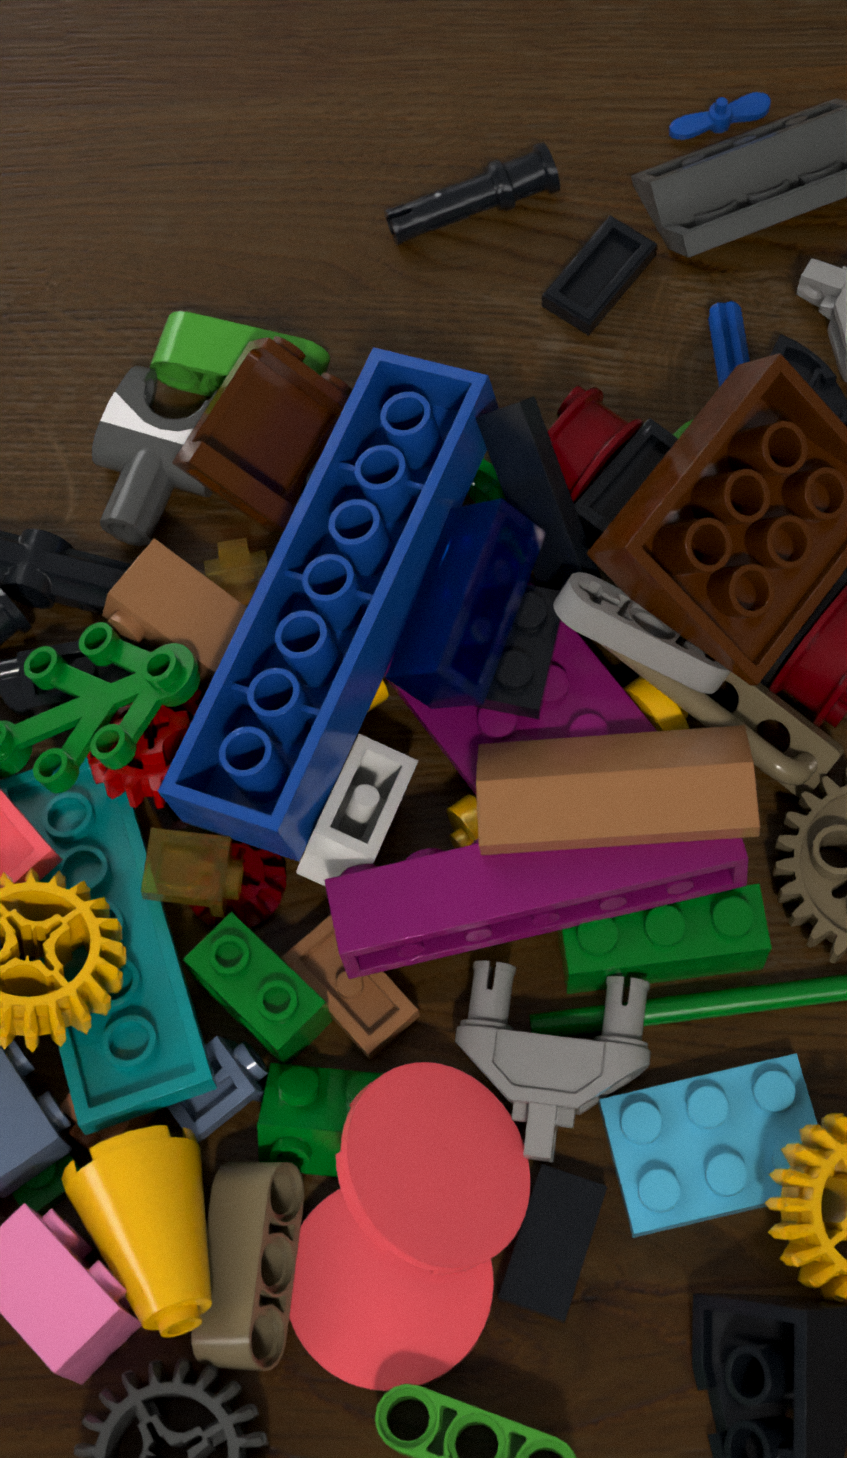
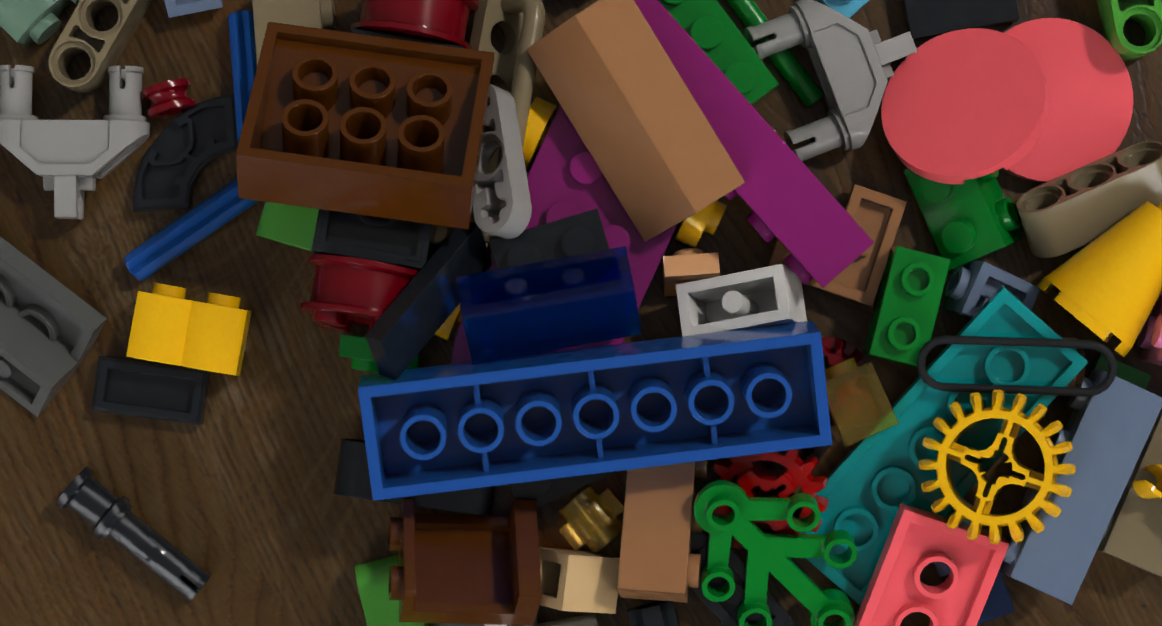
camera: 125 degrees left, 20 degrees up
(129, 1085) = (1015, 389): none -> black piece
(191, 523) = (578, 580): none -> tan brick
(425, 797) = (688, 266): none -> light nougat plate
(634, 323) = (188, 331): none -> yellow brick

